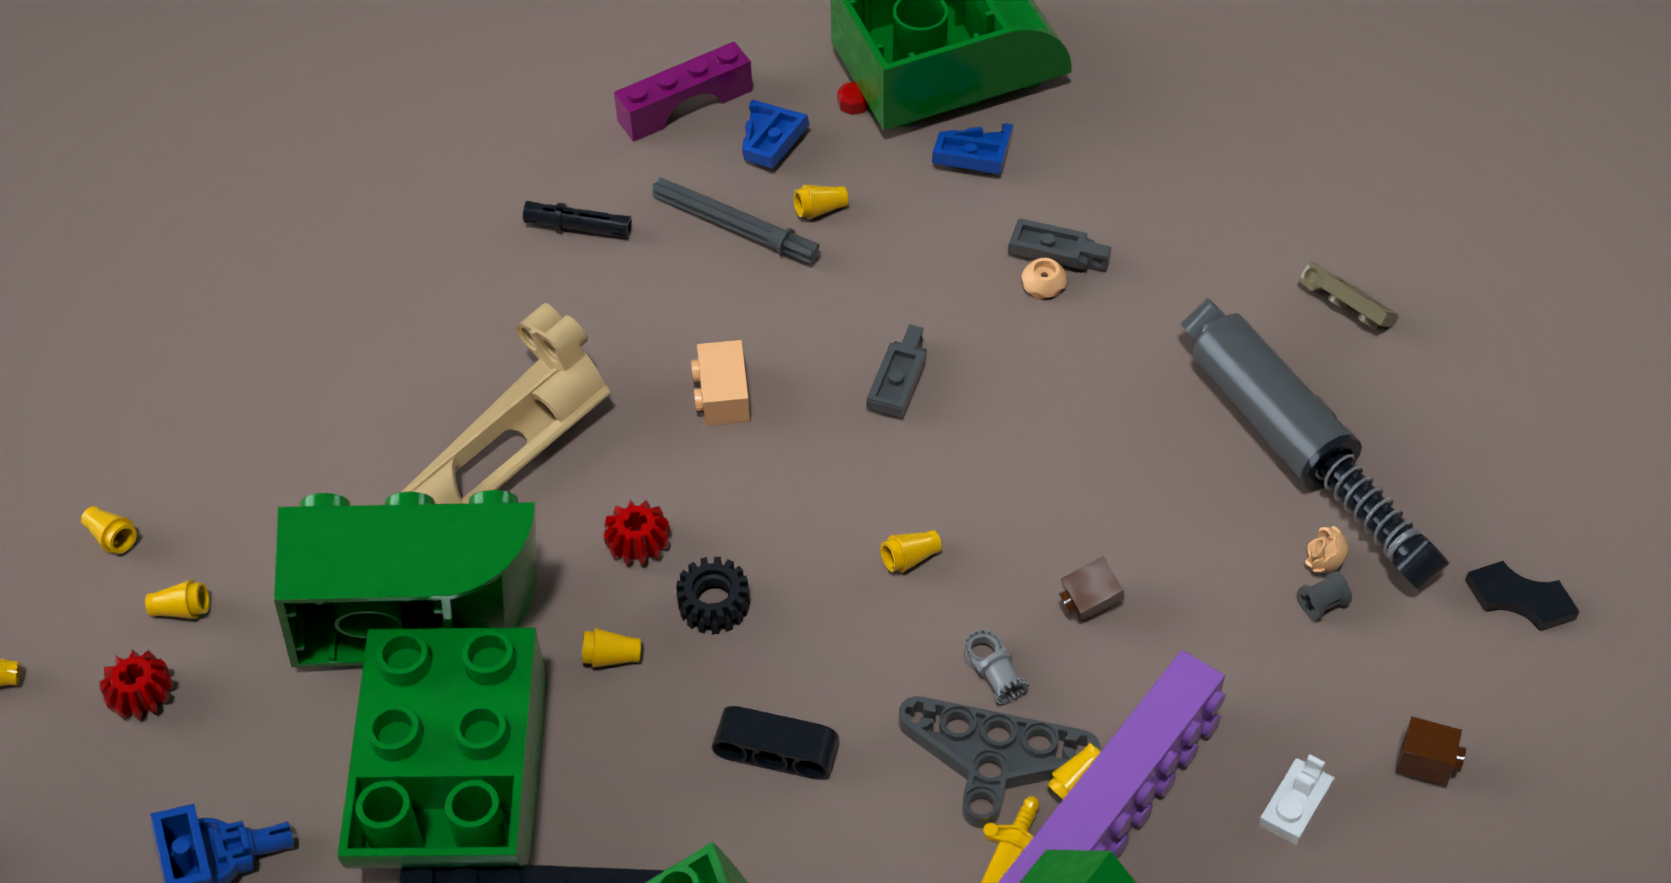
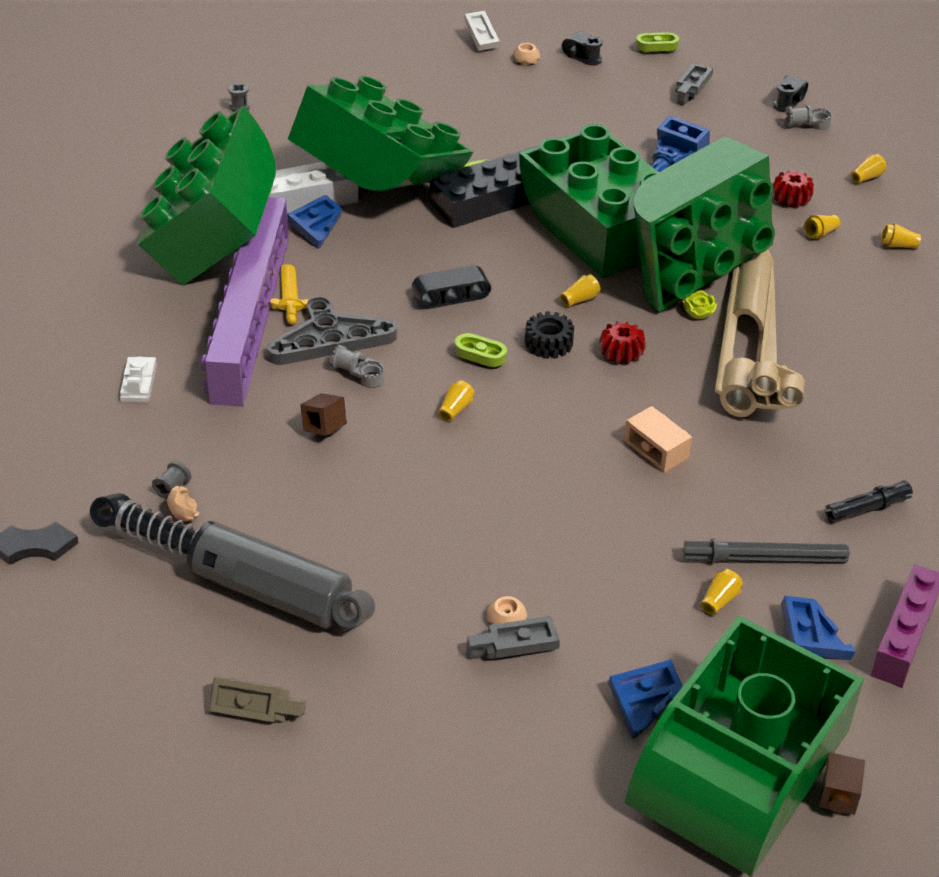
camera: 145 degrees right, 10 degrees down
(821, 617) = (480, 349): none -> lime plate
(898, 374) = (552, 497): dark grey hinge -> none
(1070, 772) = (272, 327): yellow cone -> none
(1431, 751) = (63, 415): reddish brown brick -> none

